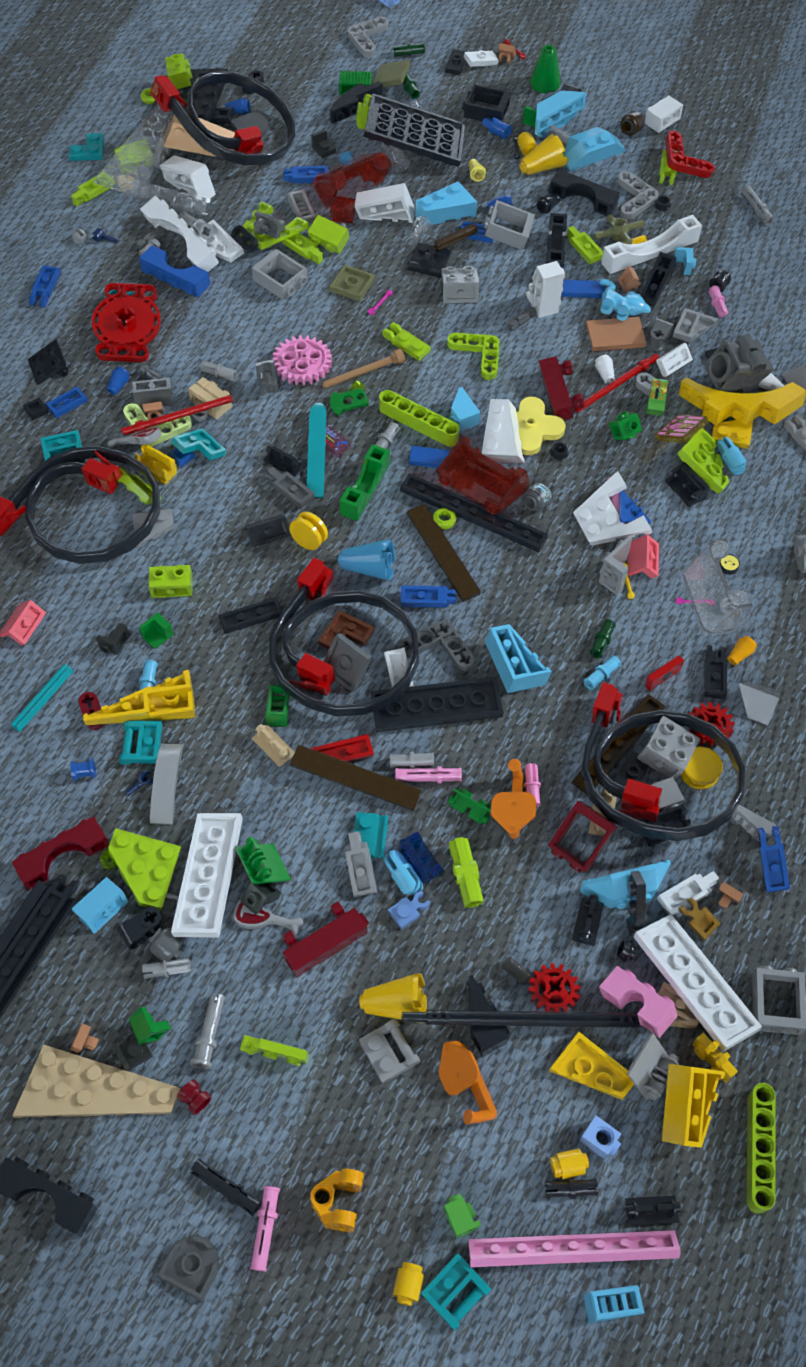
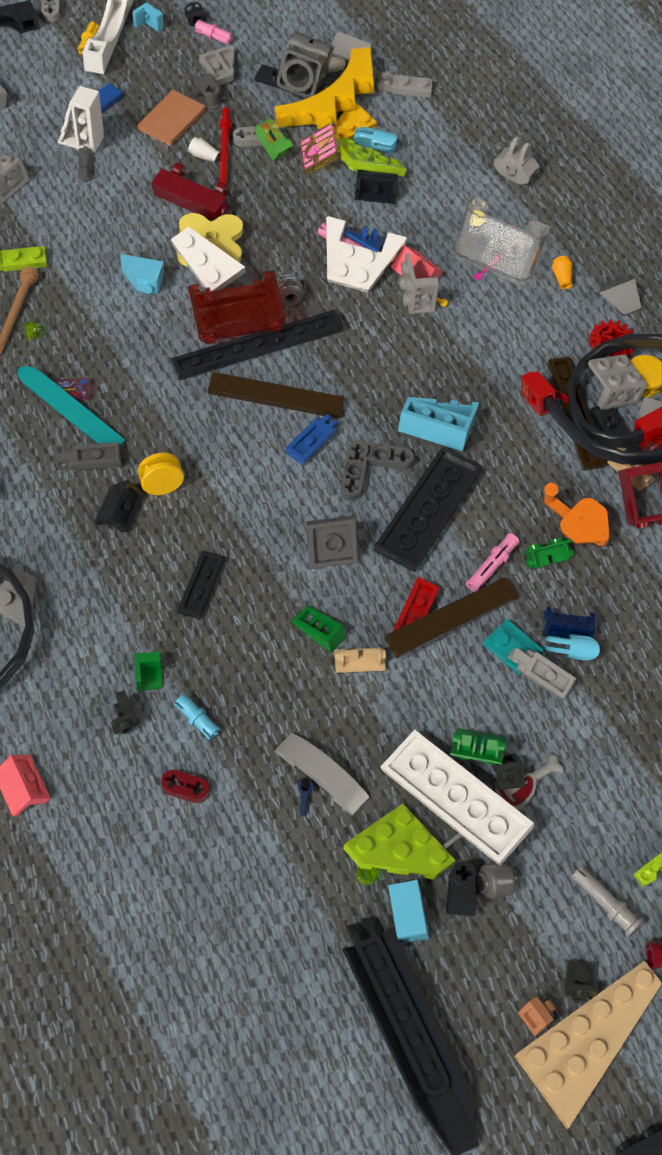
camera: 55 degrees left, 0 degrees up
(35, 865) = (322, 945): dark red arch -> none
(41, 697) = (129, 821): teal axle -> none
(83, 769) = (247, 834): blue bush -> none
(145, 1028) = (568, 949): green panel -> none
(147, 745) = (266, 759): teal plate -> none
(164, 701) = (235, 716): yellow wedge -> none
(166, 968) = (518, 896): light grey axle -> none
(170, 581) = (102, 622): lime brick -> none
(283, 460) = (53, 442): black hinge -> none
(315, 673) = (314, 574): black piece -> none
(326, 941) = (593, 749): dark red brick -> none
(337, 401) = (33, 358): green piece -> none
(349, 627) = (287, 520): copper plate -> none
(357, 497) = (157, 412): green arch -> none
(370, 559) = (237, 450): dark azure cone -> none
(386, 439) = (112, 350): light grey pin -> none
(397, 665) = (369, 510): white plate -> none
(407, 912) = (606, 670): medium blue plate -> none
(412, 760) = (468, 564): light grey pin -> none
(419, 418) = (116, 309): lime beam -> none
(427, 456) = (164, 333): blue tile -> none
(444, 524) = (245, 362): lime piece -> none
(466, 872) = (608, 600): lime piece -> none
(482, 346) = (85, 211): lime beam -> none
(532, 783) = (564, 495): bright pink axle -> none
(556, 238) = (20, 70): black arch -> none
(559, 447) = (254, 241): black plate -> none
(584, 245) = (54, 65): lime hinge -> none
(602, 638) = (470, 350): dark green pin -> none
(602, 672) = (501, 374): medium azure pin -> none
(619, 229) = (66, 31): olive bar -> none
(624, 306) = (152, 86): medium azure animal -> none
(625, 426) = (279, 180): green brick -> none
(629, 280) = (126, 66): nougat tile -> none
(658, 278) = (149, 47): black slope -> none
(664, 673) = (540, 334): red tile -> none
(674, 359) = (243, 101): white plate -> none
(715, 674) = (567, 302): black hinge -> none

